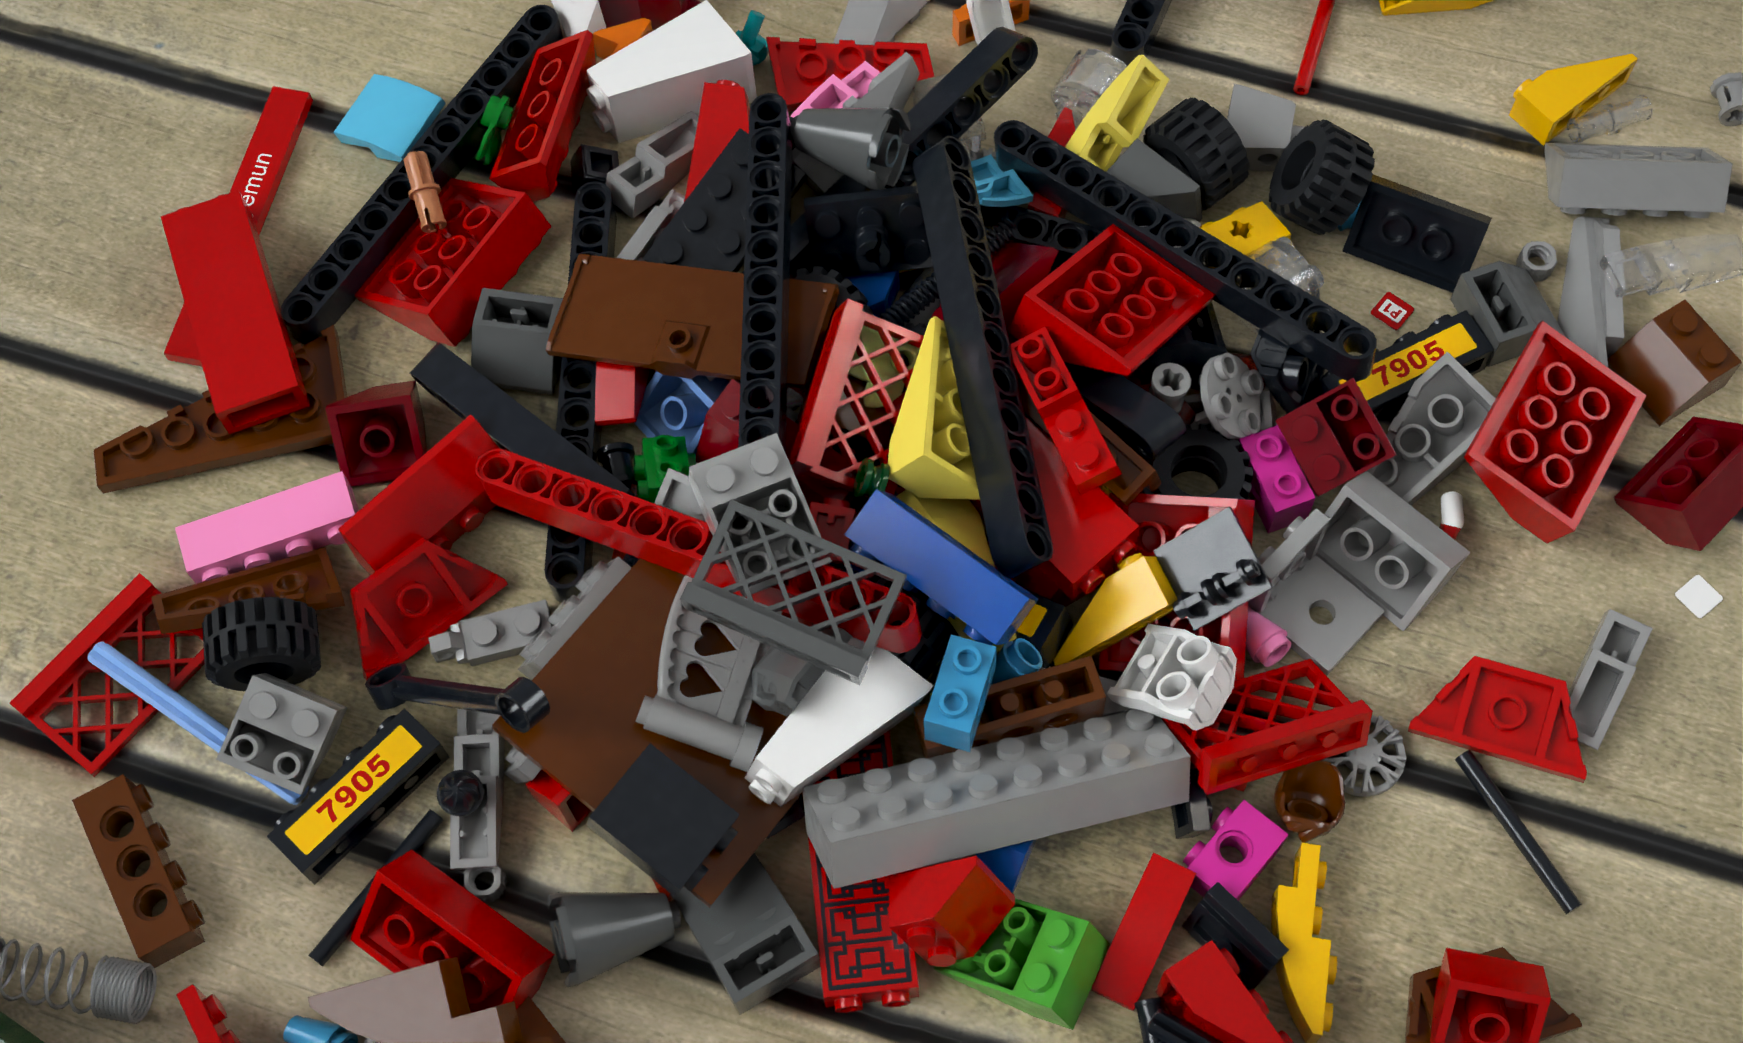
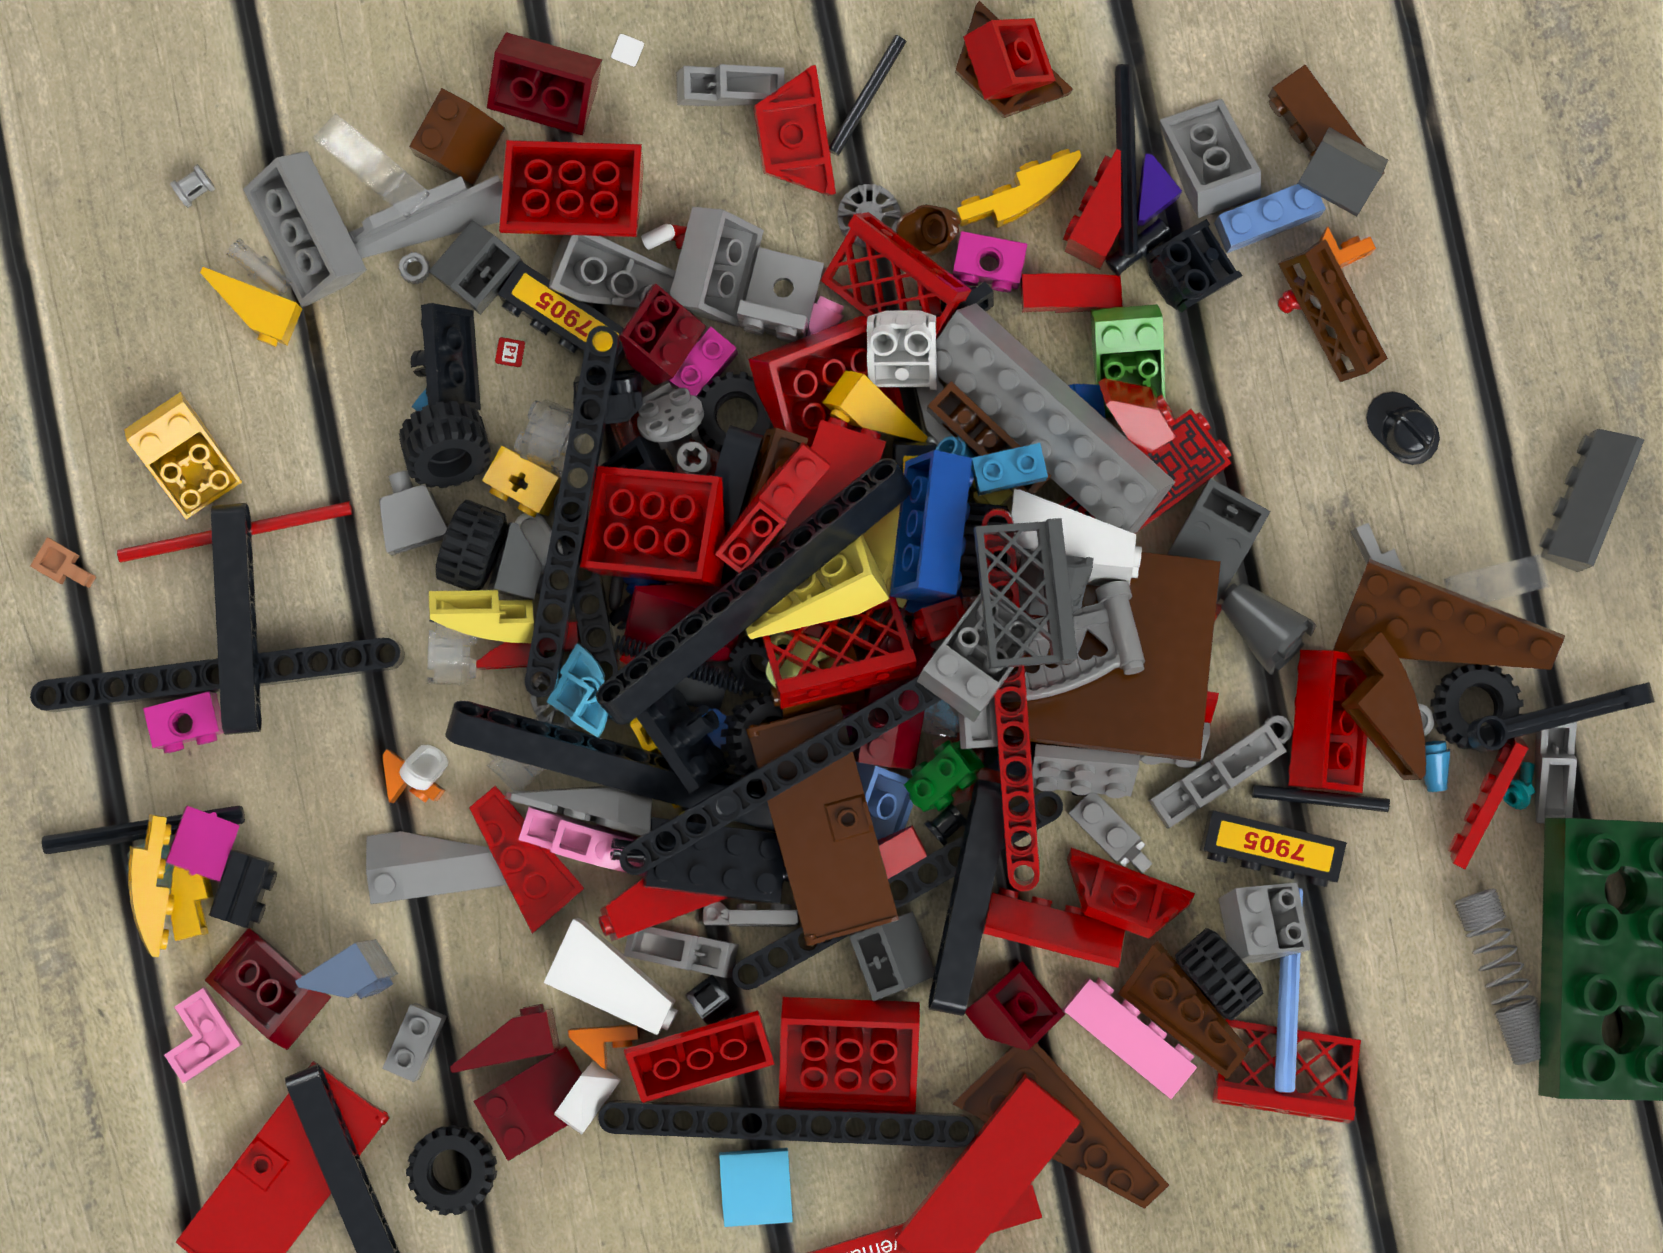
camera: 120 degrees left, 20 degrees up
(102, 816) = (1437, 919): reddish brown brick -> none
(424, 191) = (816, 1101): nougat axle -> none
(460, 793) = (1240, 770): black plate -> none
(496, 118) = (724, 1090): green plate -> none
(520, 703) = (1184, 743): black piece -> none
(664, 821) = (1194, 614): black brick -> none
(752, 39) = (538, 948): teal plate -> none
(855, 142) = (624, 785): dark grey cone -> none
(870, 478) = (895, 609): dark green bush -> none
(1212, 569) = (822, 358): hinge -> none
(1233, 927) = (1045, 233): black plate -> none

